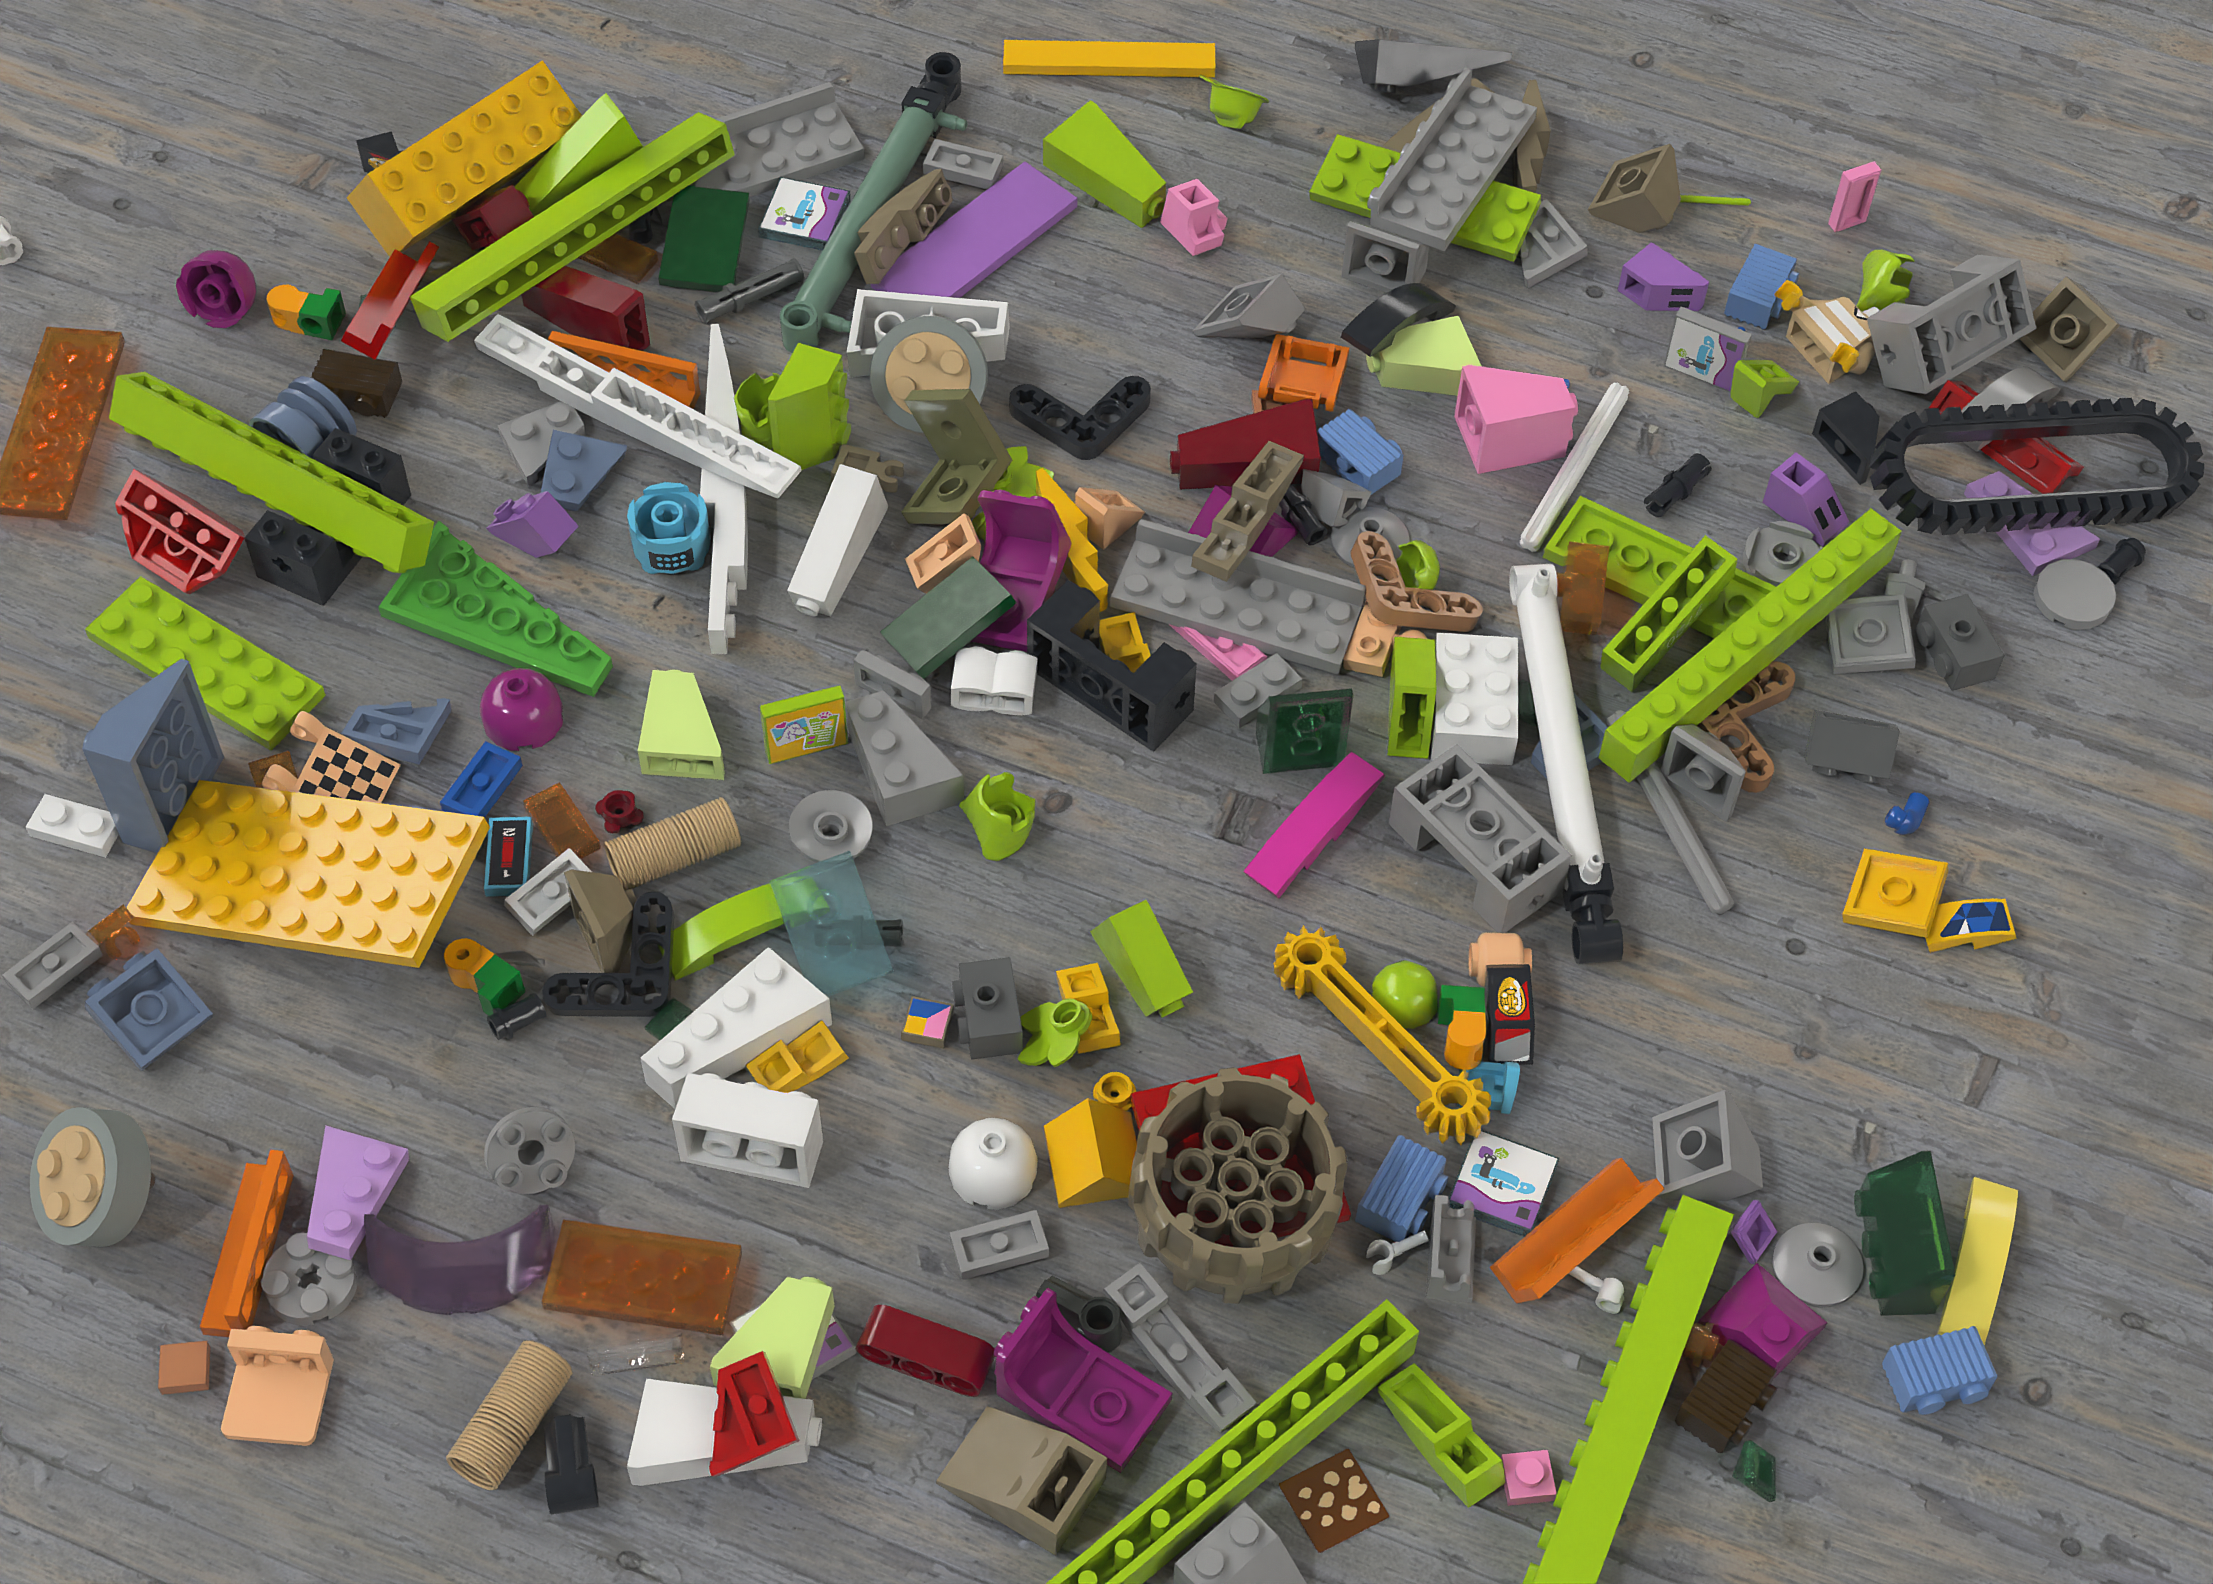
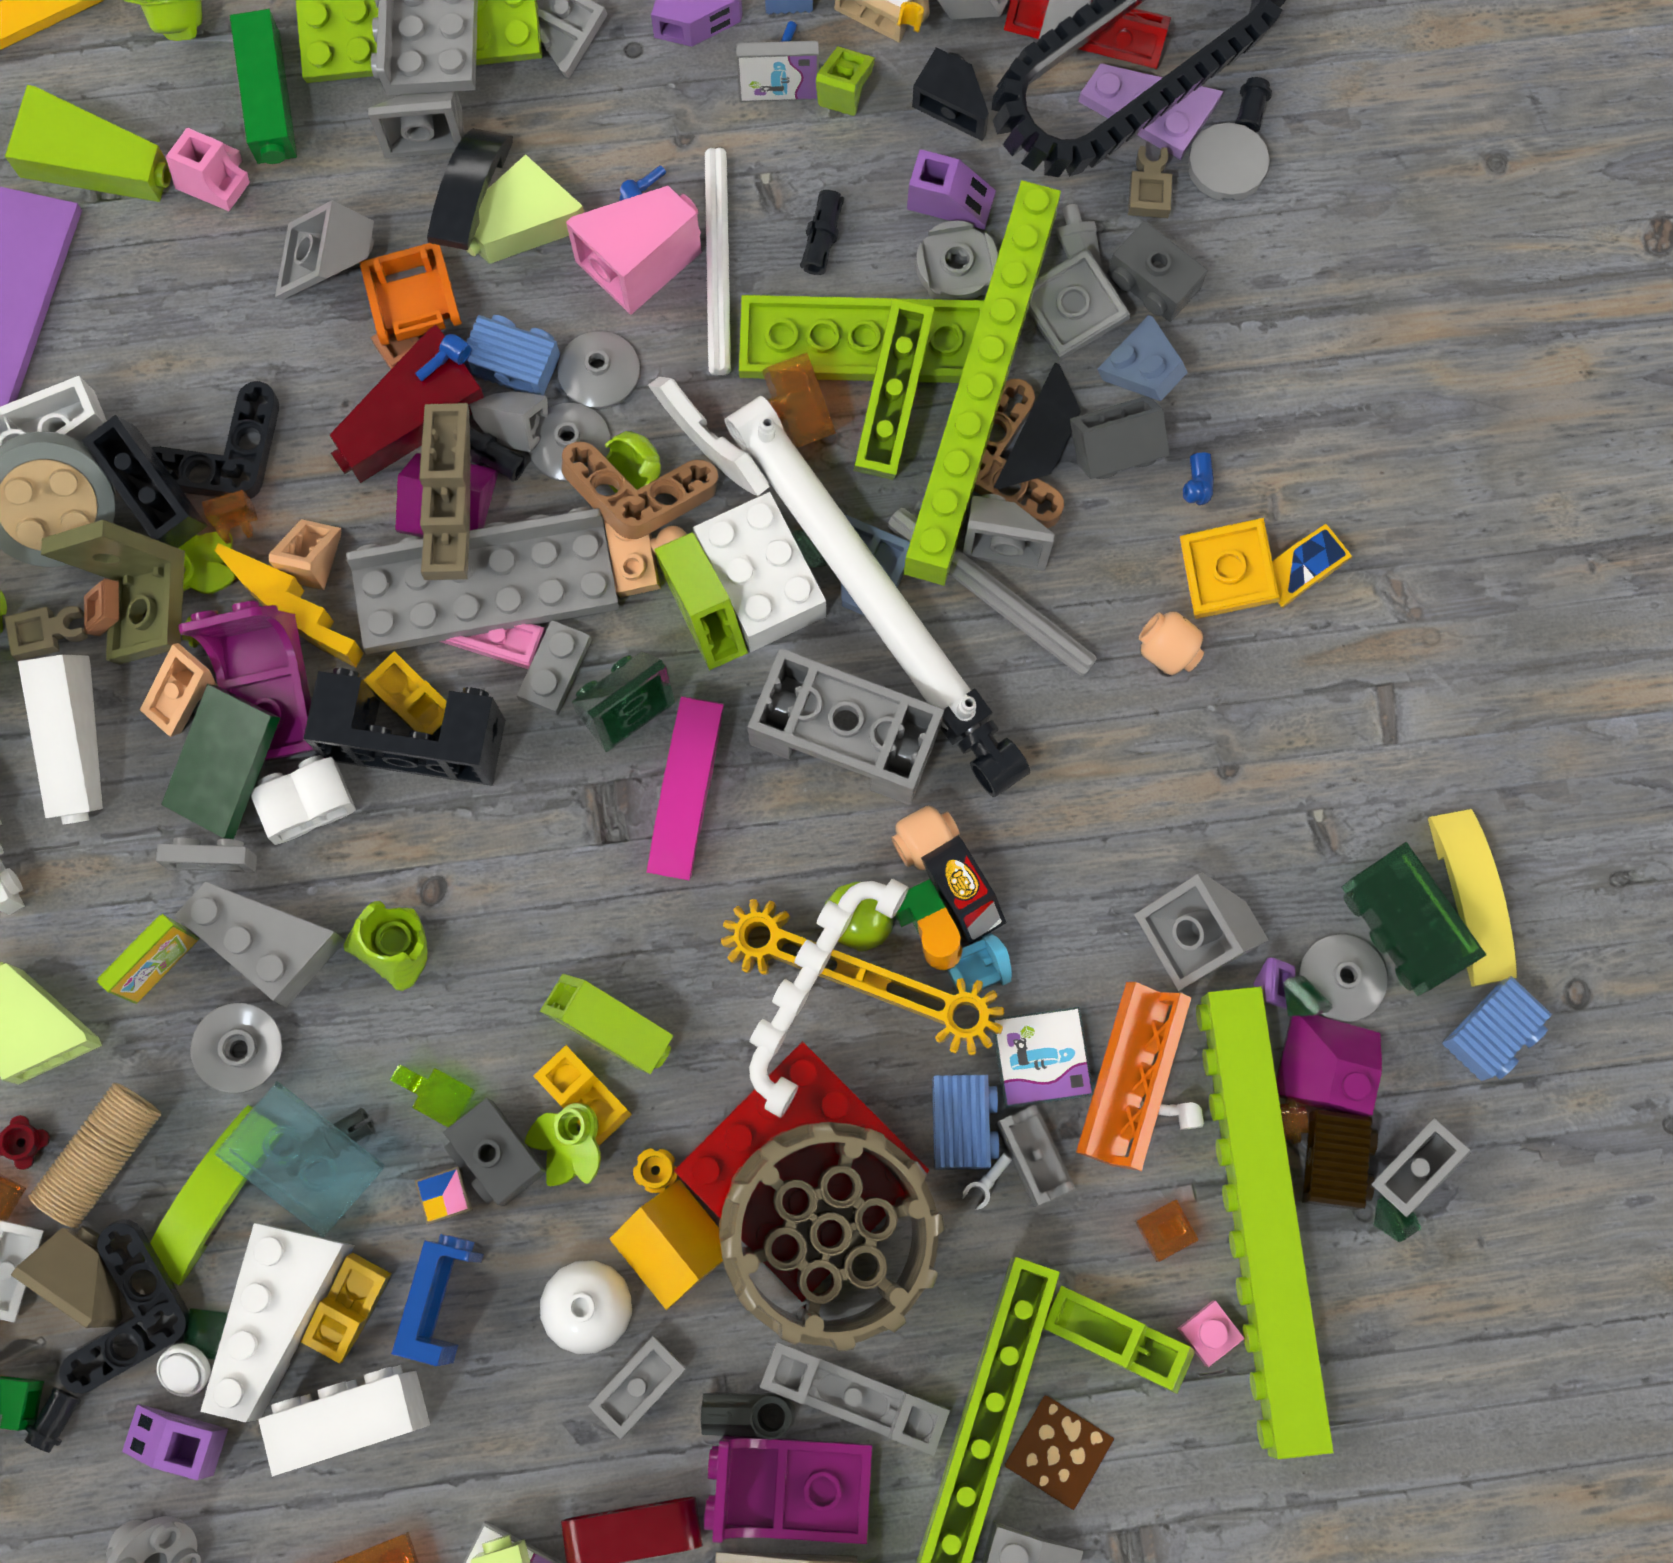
camera: 30 degrees left, 20 degrees up
(604, 1080) = (174, 1442): none -> medium lavender slope
(639, 1034) = (183, 1370): none -> white piece
(871, 1074) = (426, 1298): none -> blue panel
(921, 473) = (101, 607): none -> nougat tile
(964, 943) = (438, 1096): none -> clear neon green plate
(1012, 396) = (144, 482): none -> black brick
(1064, 456) = (229, 512): none -> clear orange tile
(1273, 183) = (263, 86): none -> green brick
(1314, 416) = (450, 347): none -> blue hand
(1346, 989) = (792, 996): none -> white bar
(1425, 510) = (604, 385): none -> light grey dish
(1494, 598) = (726, 456): none -> white tile
(1535, 1375) = (1166, 1230): none -> clear orange tile
(1768, 1251) = (1304, 998): none -> clear green slope
(1784, 716) = (1043, 433): none -> black sticker
(1804, 1435) = (1421, 1167): none -> light grey slope
(1808, 922) = (1171, 643): none -> light nougat head
(1906, 701) = (1144, 362): none -> sand blue wing
(1991, 580) = (1149, 187): none -> dark tan plate

